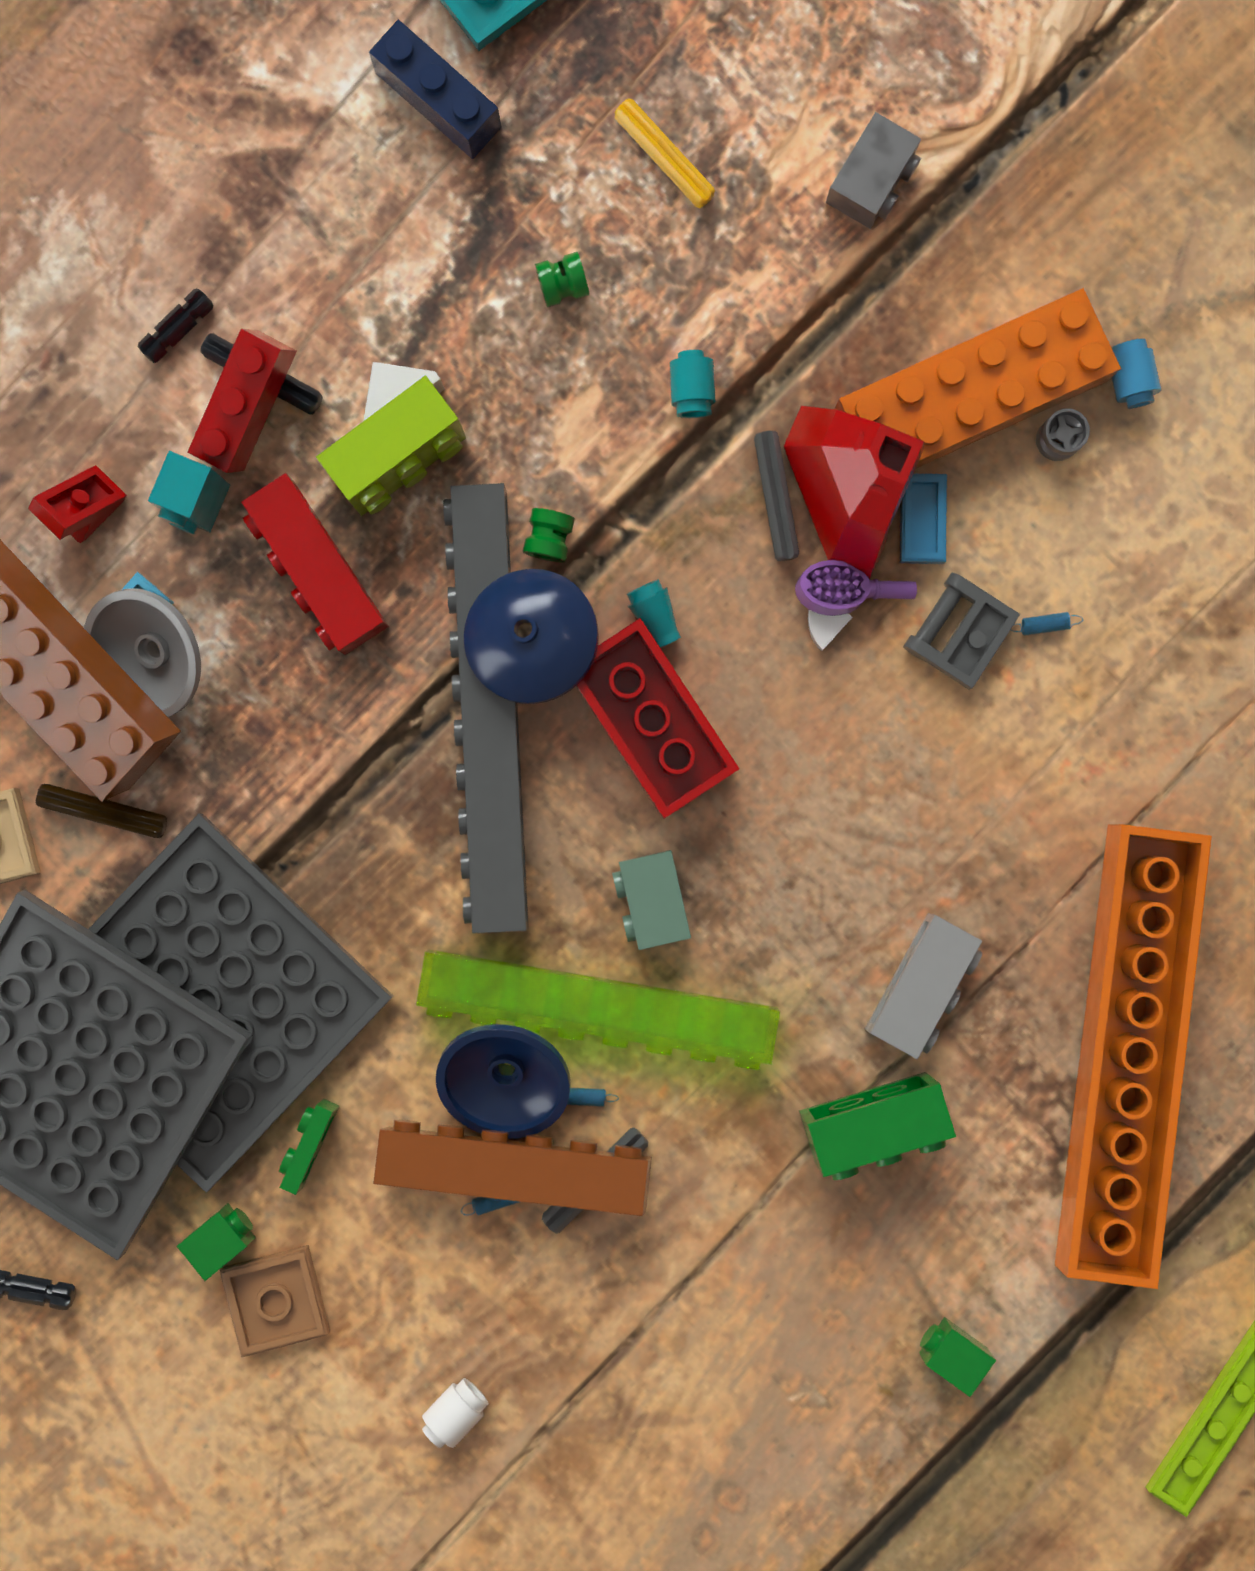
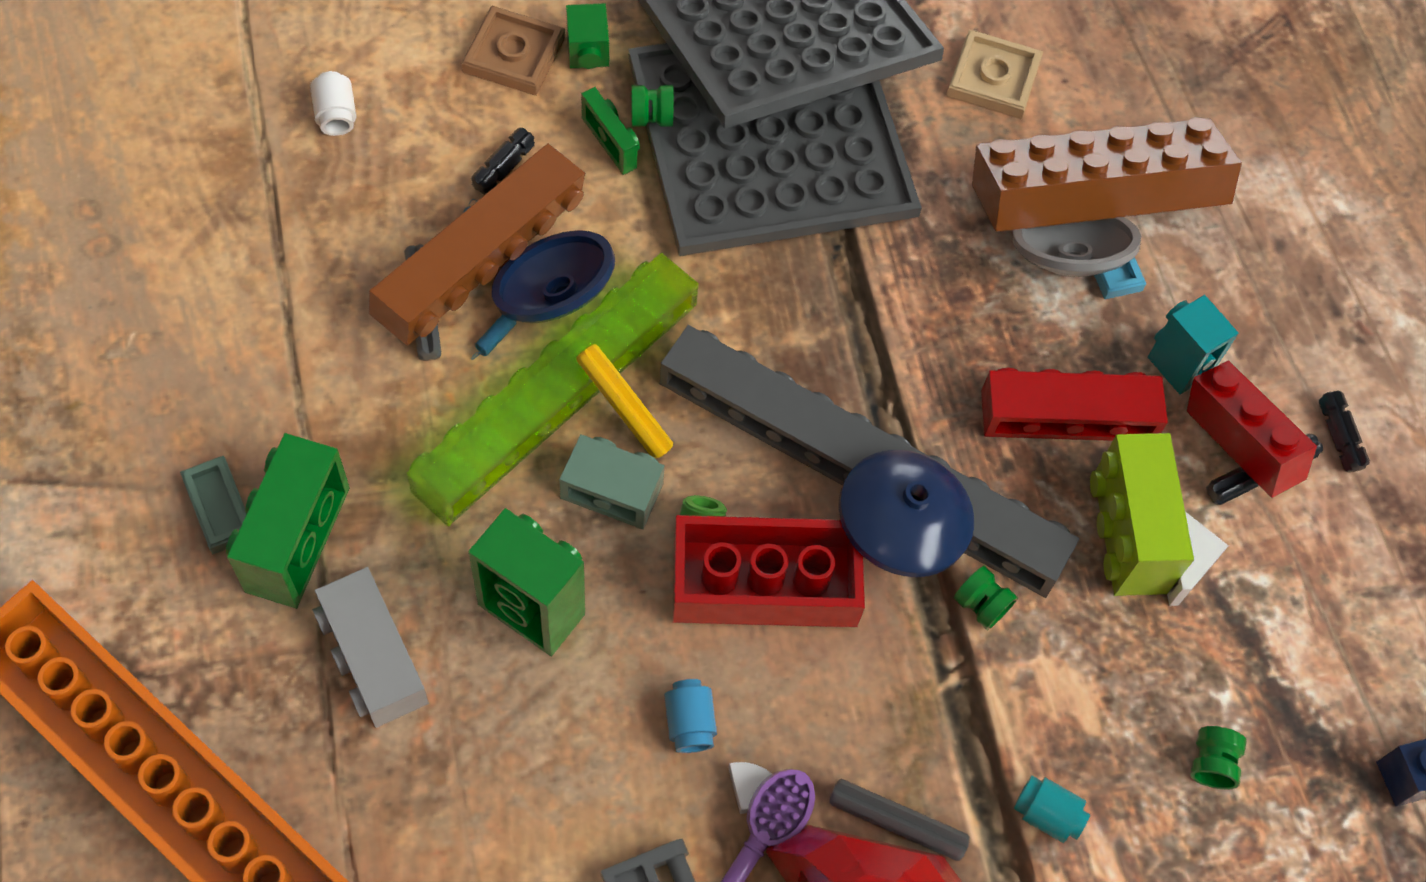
camera: 115 degrees right, 25 degrees down
(78, 504) = (1229, 270): red slope -> none
(103, 812) = (964, 155): dark brown axle -> none
(266, 1120) = (662, 106): none -> green wheel
(404, 1219) = (503, 160): none -> black axle
(580, 937) = (624, 401): none -> yellow axle
(630, 807) = (702, 506): none -> bright green tile
(654, 607) = (861, 641): teal cone -> none
(804, 893) = (529, 580): none -> green brick
(807, 703) = (690, 716): none -> dark azure brick
(888, 1203) = (215, 501): none -> sand green tile
(956, 1356) = (51, 467): green brick -> none

